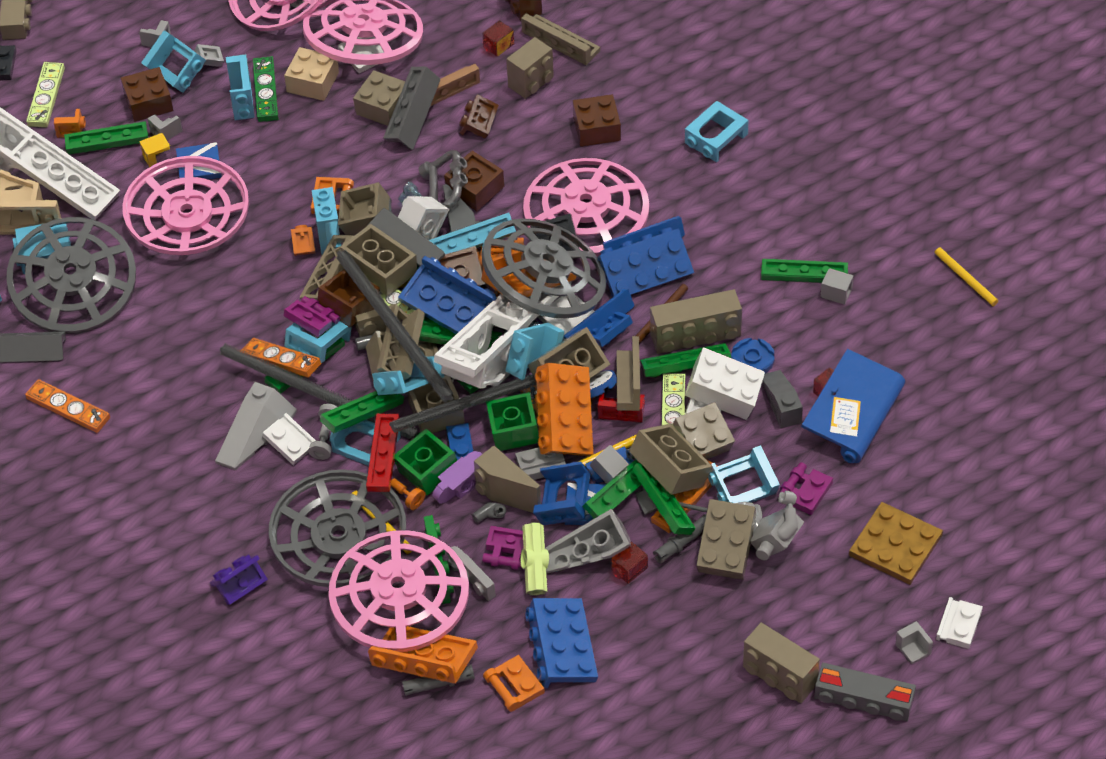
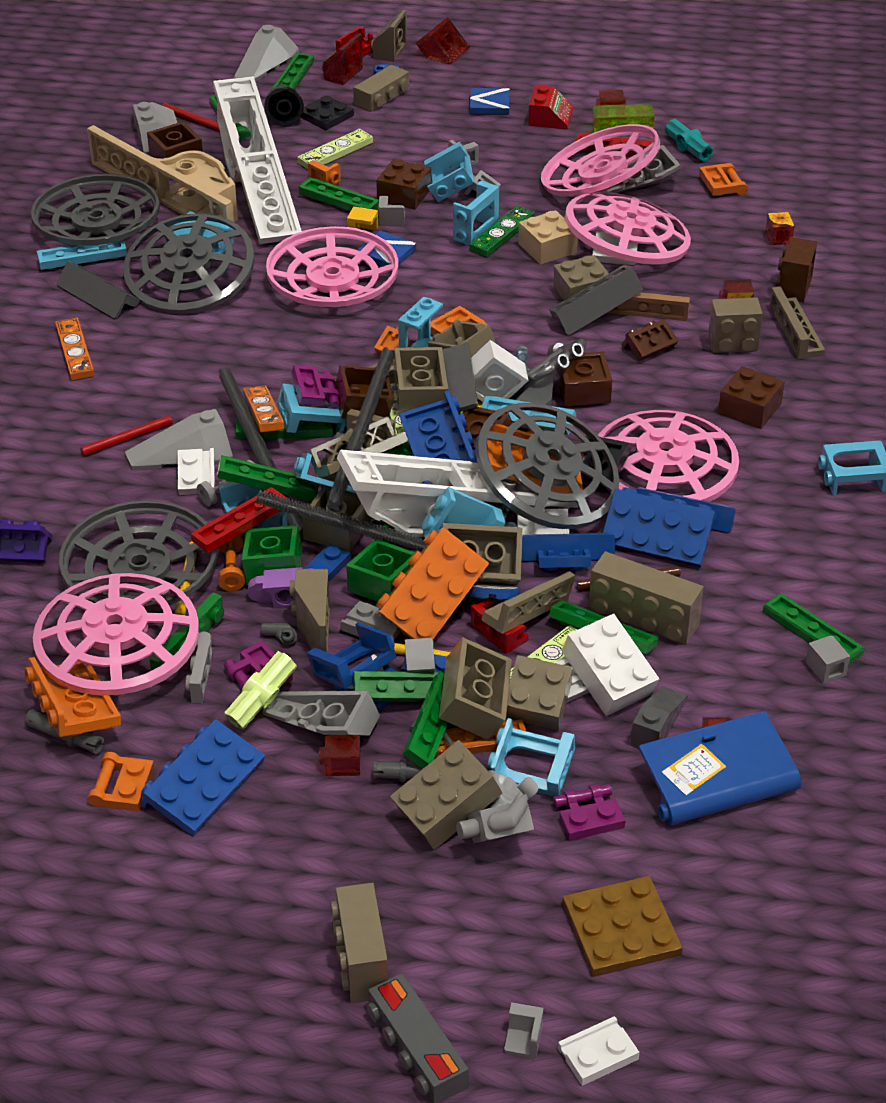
camera: 40 degrees right, 10 degrees down
(200, 446) = (126, 435): none -> red bar
(754, 353) = (676, 667): blue tile -> none

